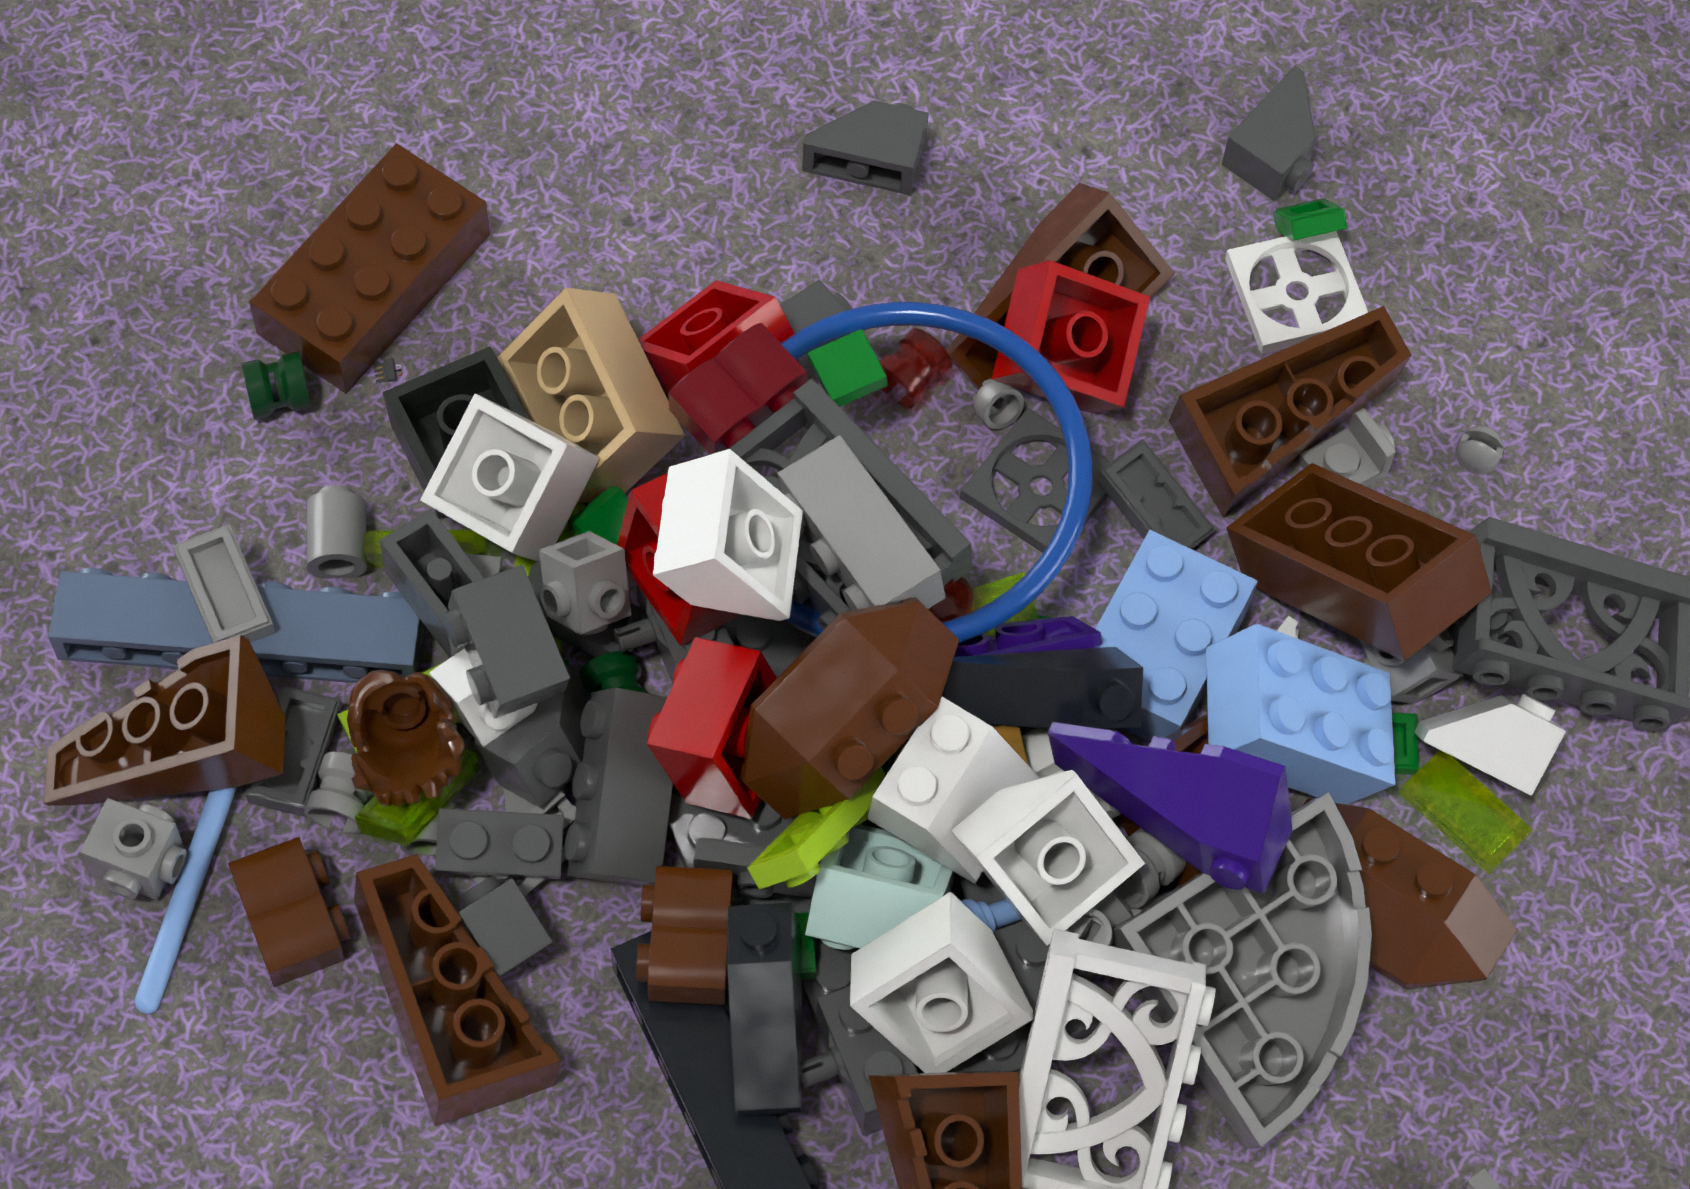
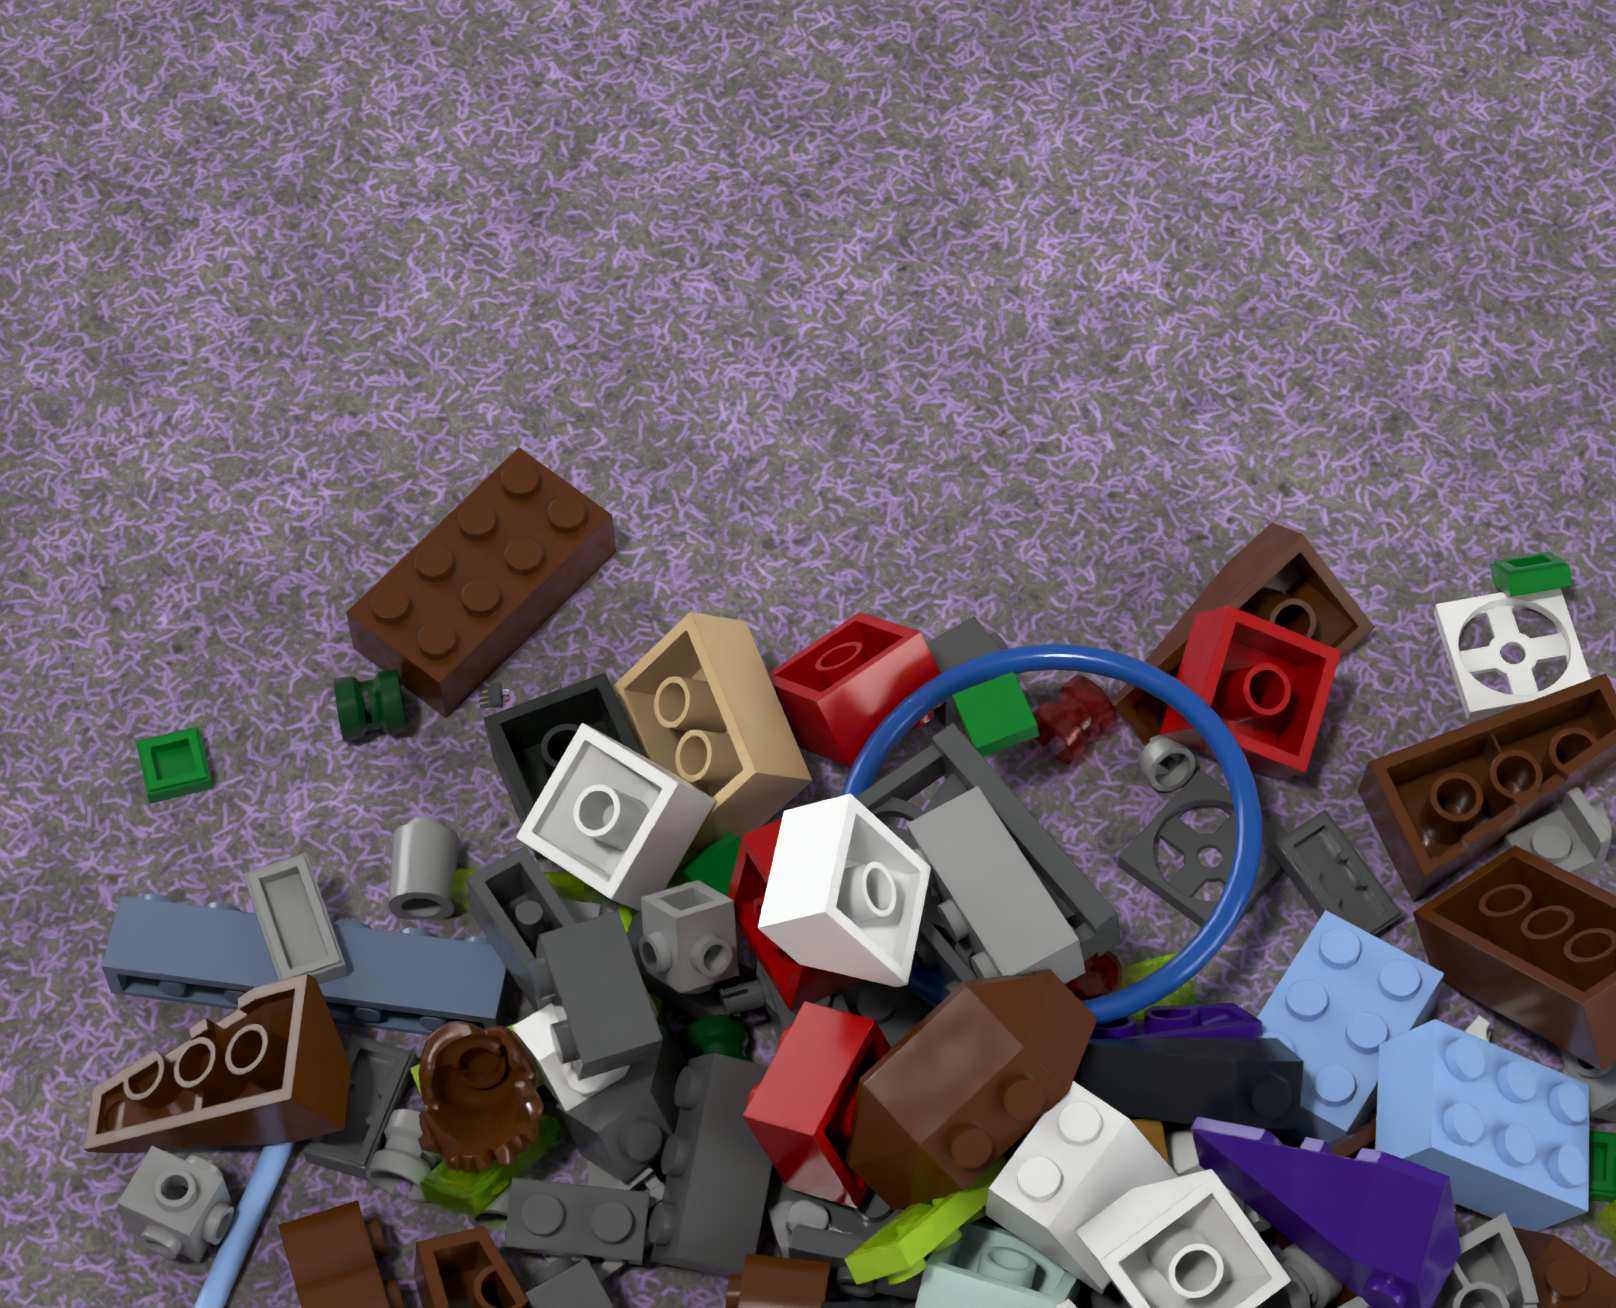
camera: 10 degrees right, 5 degrees down
(99, 448) = (174, 764): none -> green tile
(736, 389) = (870, 730): dark red brick -> none
(870, 147) = (1042, 473): dark grey slope -> none
(1275, 140) = (1496, 484): dark grey slope -> none

